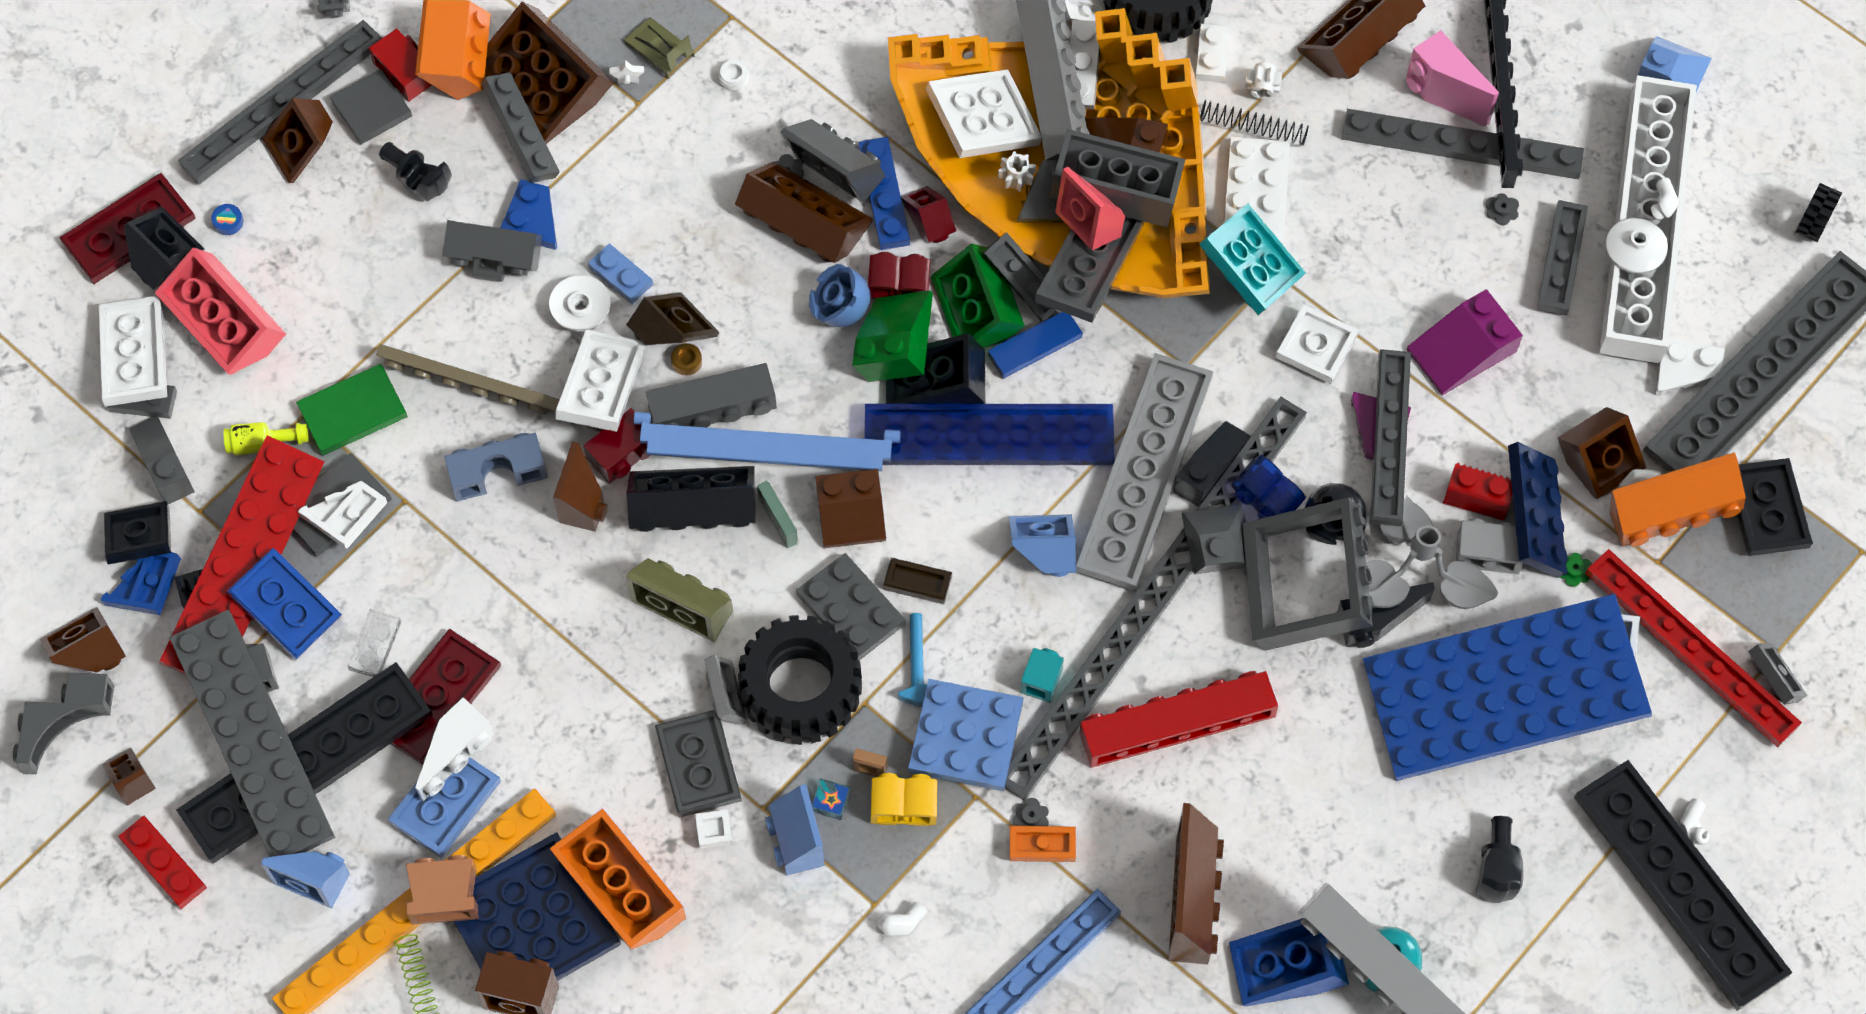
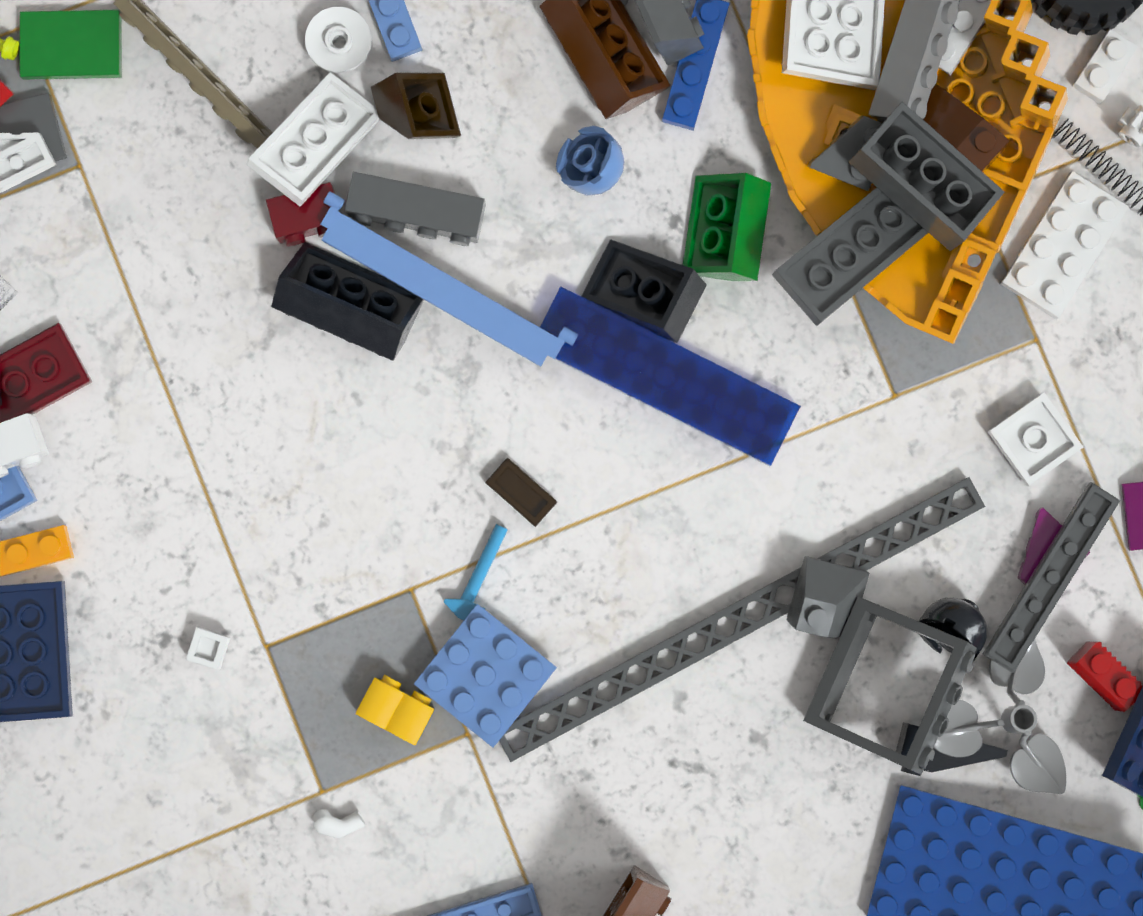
camera: 25 degrees right, 20 degrees up
(470, 467) = (148, 169): sand blue arch -> none
(578, 494) = (241, 246): reddish brown slope -> none
(619, 881) = (91, 662): orange slope -> none
(679, 598) = (285, 402): olive slope -> none
(686, 359) = (415, 151): pearl gold tile -> none
(698, 763) = (226, 573): dark grey tile -> none
(725, 689) = (284, 515): light grey plate -> none
(777, 514) = (420, 360): sand green tile -> none
(793, 641) = (309, 540): black tyre -> none
(796, 832) = (278, 695): medium blue slope -> none
(830, 799) = (330, 671): tile -> none
(850, 508) = (492, 389): reddish brown slope -> none
(852, 603) = (444, 488): dark grey plate -> none
(869, 762) = (382, 657): medium nougat tile -> none
(894, 337) = (624, 228): green slope -> none
(897, 275) = (662, 165): dark red brick -> none
(929, 214) = (726, 109): dark red slope -> none
(1018, 272) = (779, 219): dark grey plate -> none
(1024, 170) = (840, 113): white gear -> none
(1031, 806) = (514, 771): dark grey plant -> none
(1034, 344) = (751, 301): blue tile -> none
(1042, 674) = (589, 649): teal brick -> none
(1043, 843) = (503, 816): orange plate -> none
(1046, 542) = (660, 515): medium blue slope -> none
(1088, 211) = (877, 202): coral slope -> none
(1144, 472) = (796, 489): light grey plate -> none
(1178, 718) = (693, 759): red brick -> none
(1210, 463) = (866, 512): black slope -> none
(1252, 259) = (1017, 326): teal plate -> none
(1267, 488) = (901, 574): clear blue brick -> none
(1488, 546) = (1083, 733): light grey brick -> none

